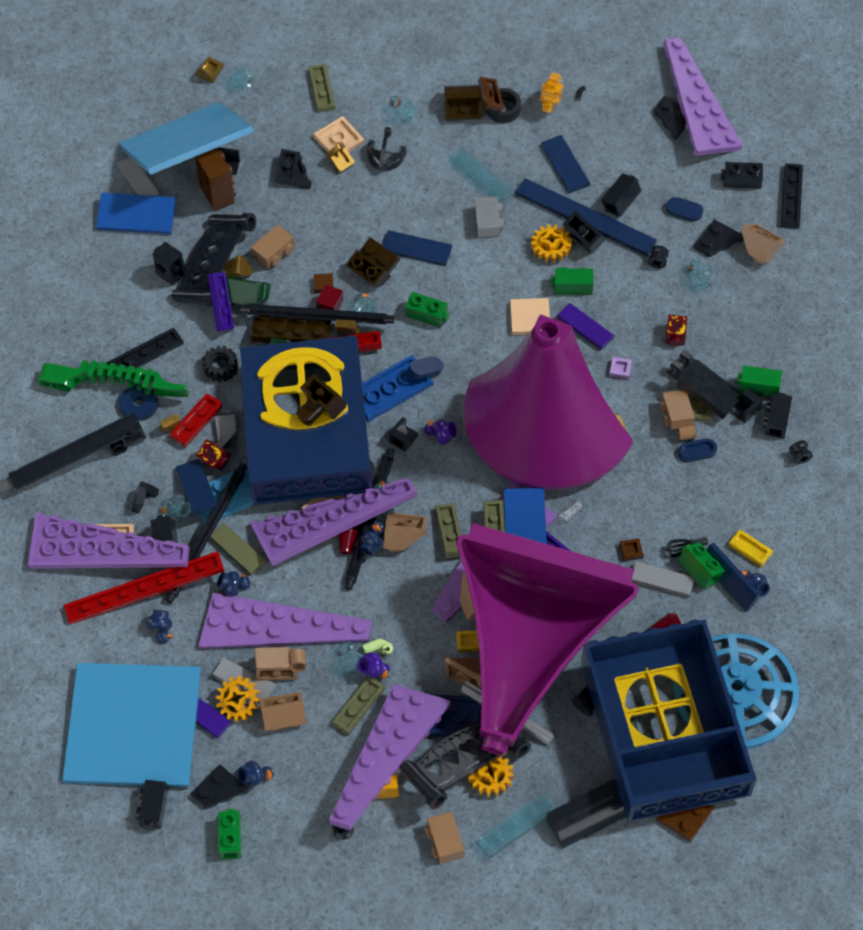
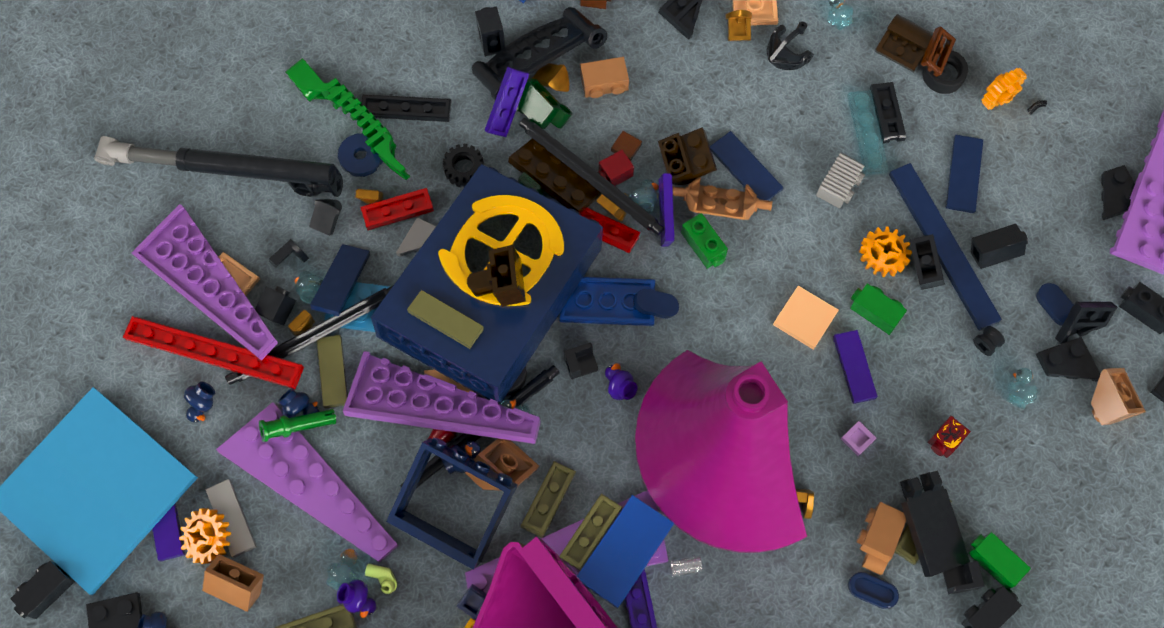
camera: 35 degrees right, 10 degrees up
(149, 455) = (325, 215): none -> black tile
(191, 531) = (301, 323): none -> pearl gold tile
(214, 455) = (382, 257): dark red brick -> none
(238, 596) = (285, 426): none -> green pin
(278, 663) = (269, 525): medium nougat hinge -> none
(301, 451) = (445, 319): none -> olive tile
(385, 304) = (666, 209): none -> dark purple tile
(395, 531) = (433, 536): none -> dark blue window
(418, 278) = (721, 201): none -> medium nougat plate
(452, 619) = (472, 601): none -> dark blue tile
(485, 154) = (888, 112): none -> black plate
(708, 205) = (1085, 318): none -> black wing

